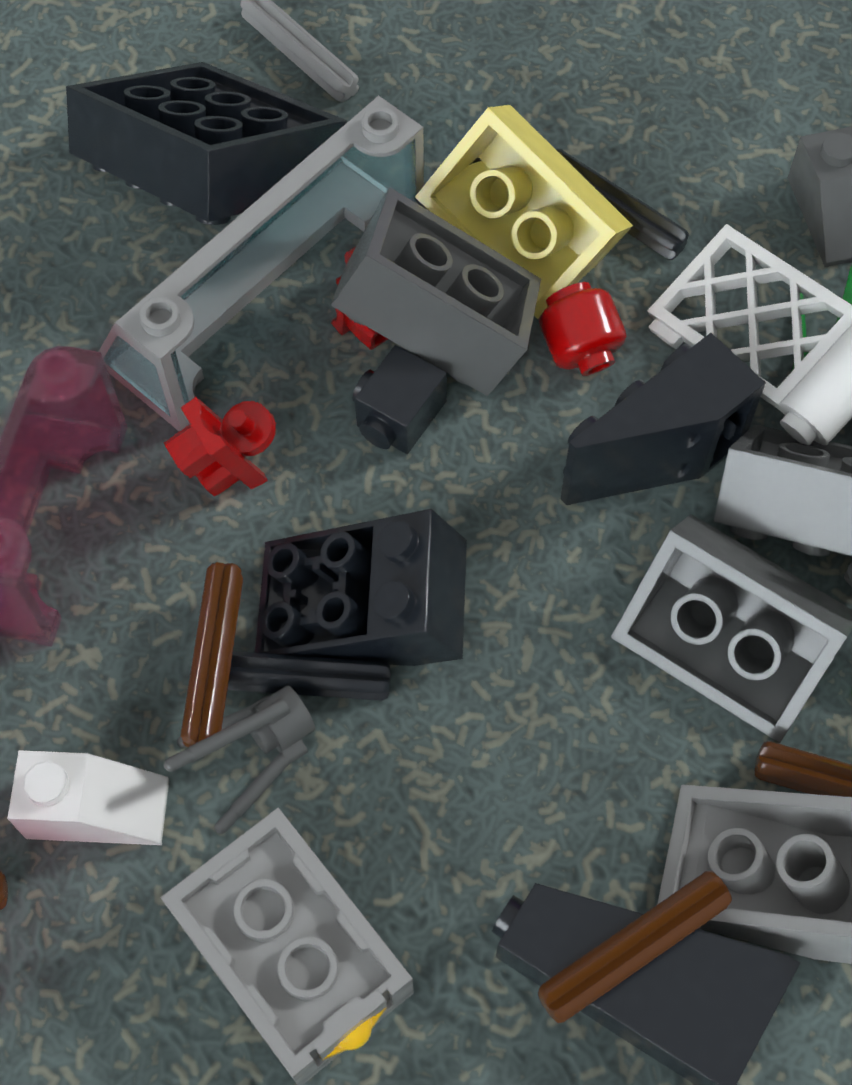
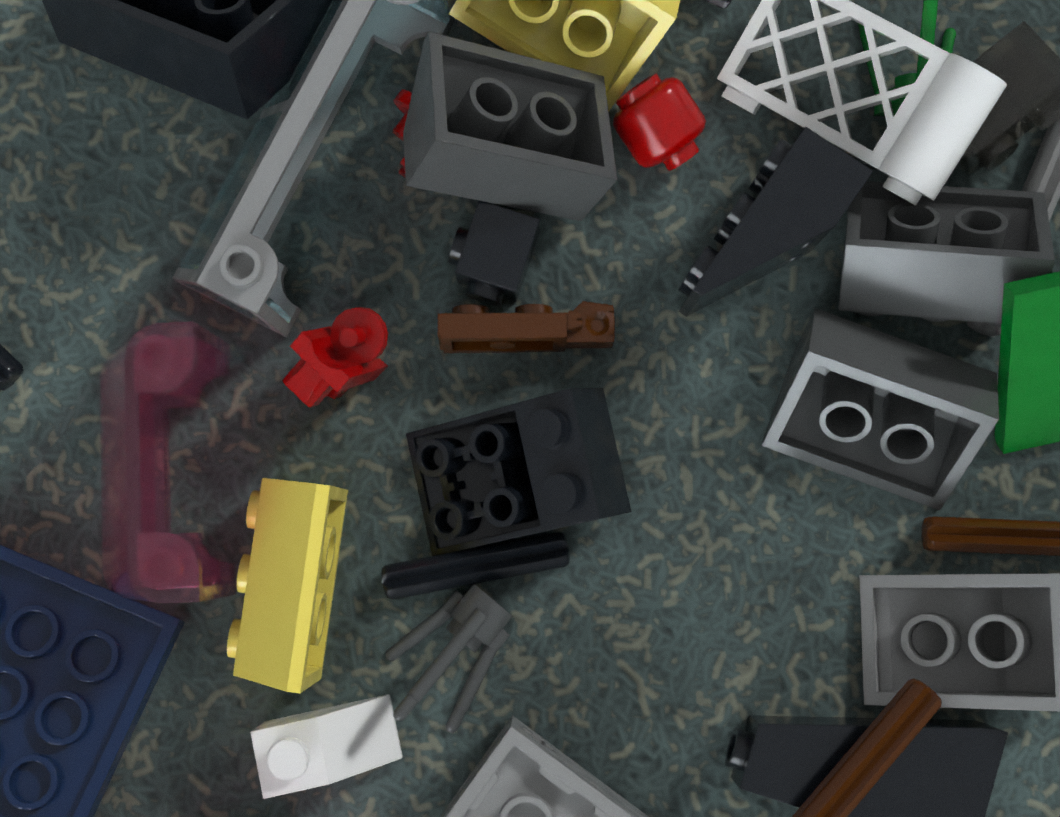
camera: 15 degrees left, 20 degrees up
(110, 632) = (287, 583): none -> light yellow slope
(212, 653) = (397, 579): reddish brown axle -> none
(404, 472) = (529, 329): none -> reddish brown hinge

